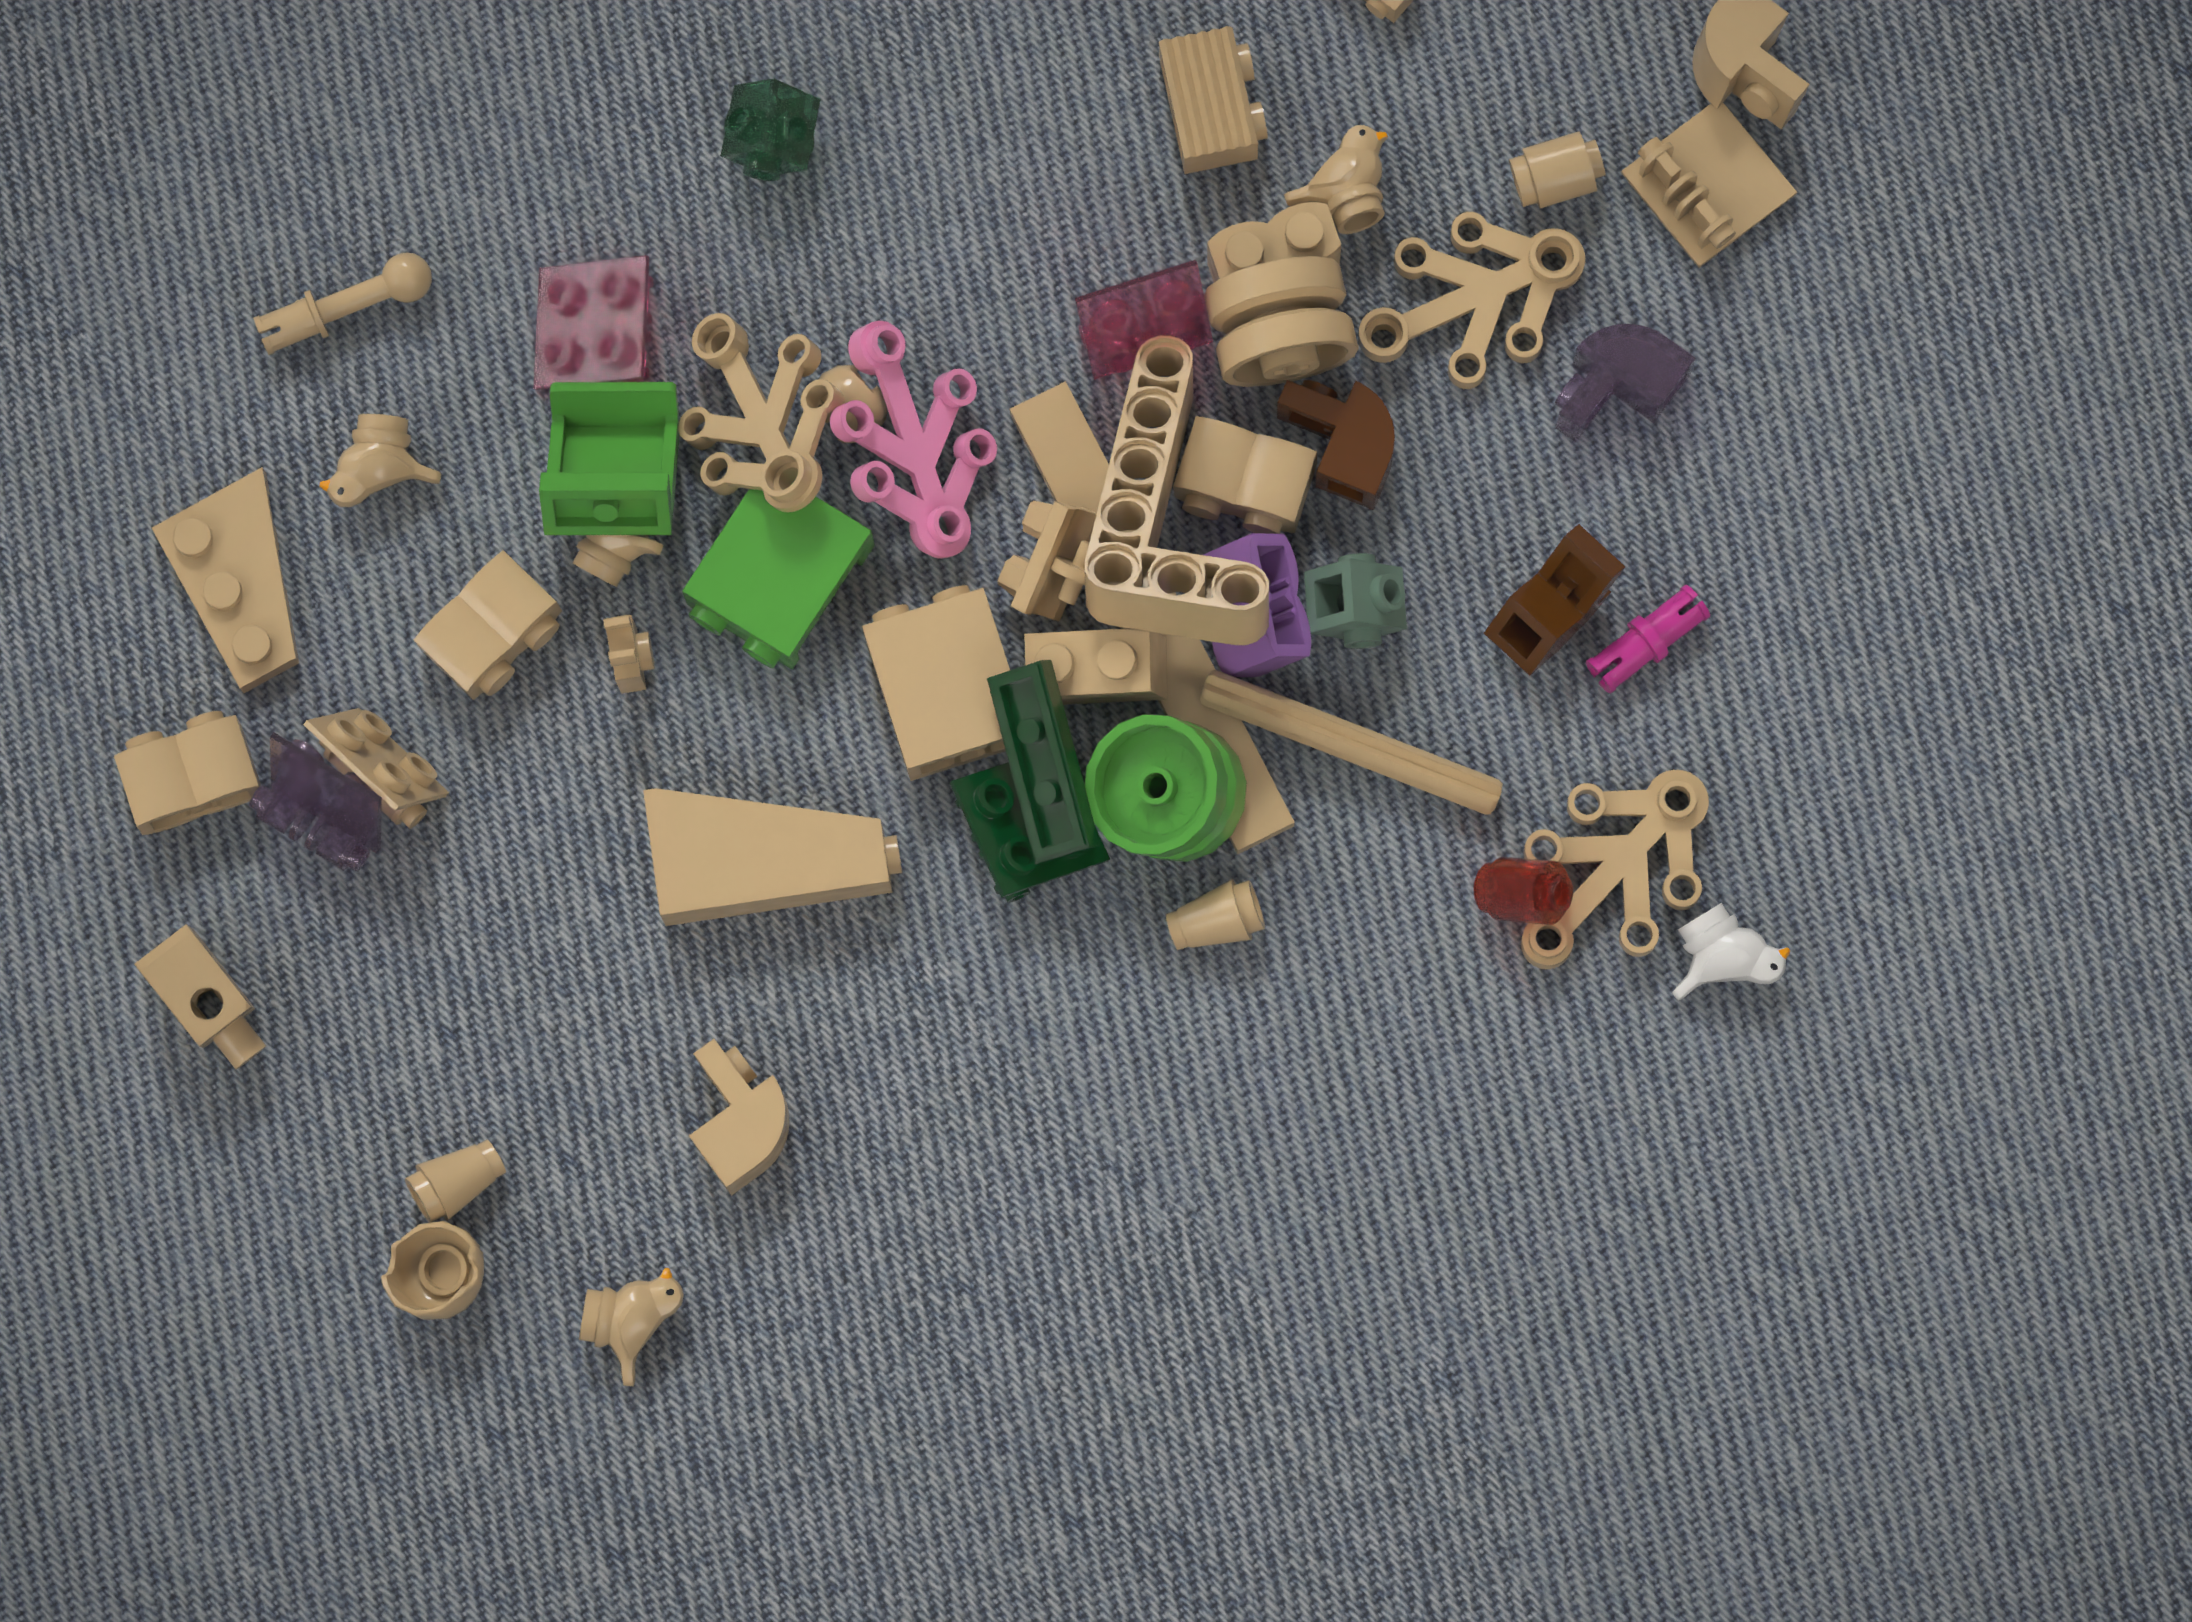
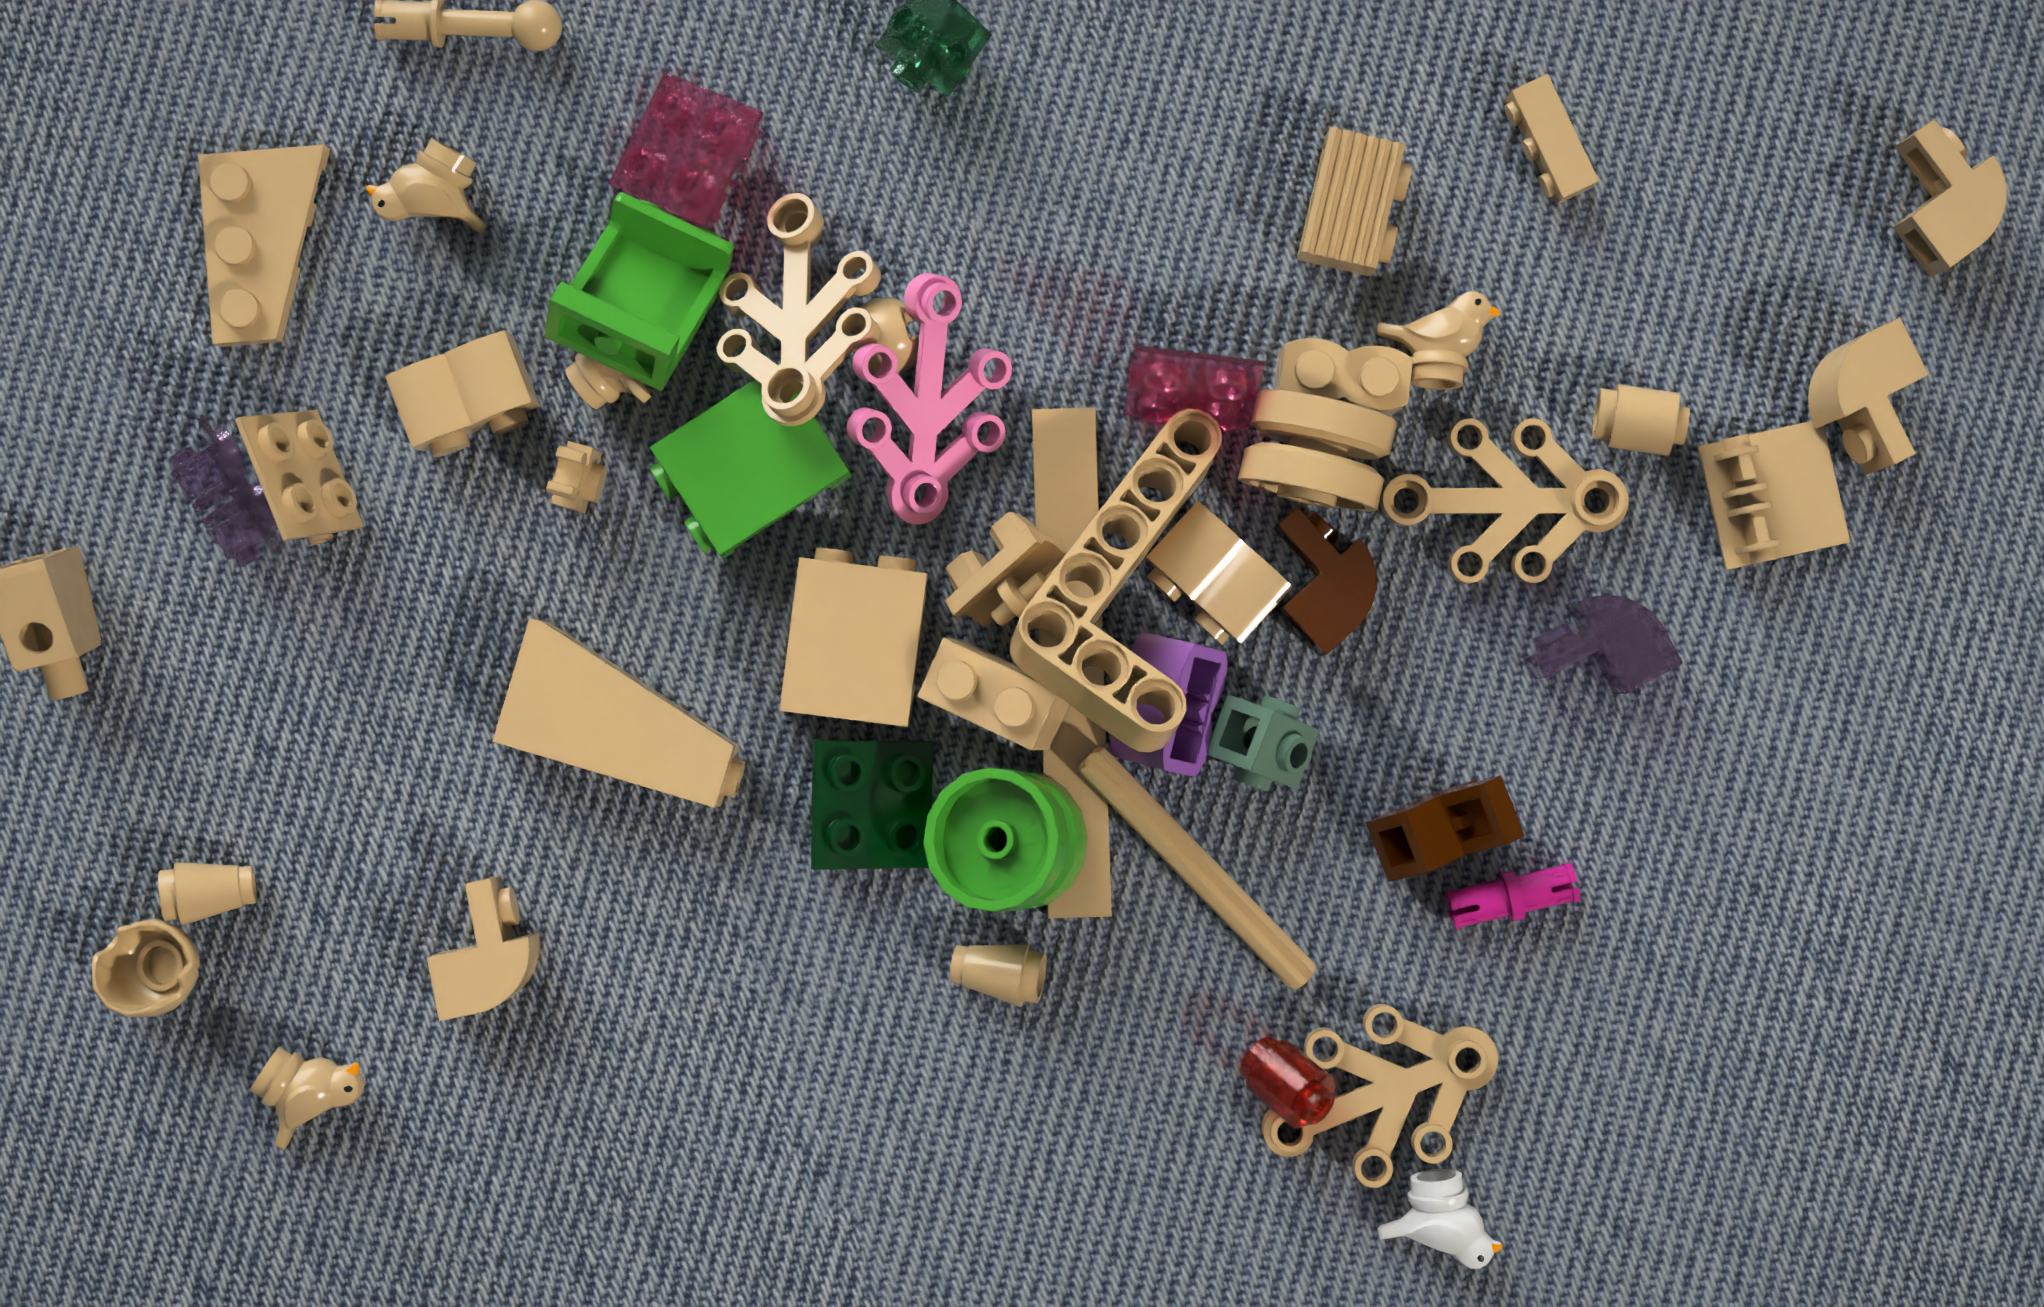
camera: 20 degrees right, 10 degrees up
(187, 773) = (129, 402): tan brick -> none
(1043, 761) = (904, 767): dark green tile -> none

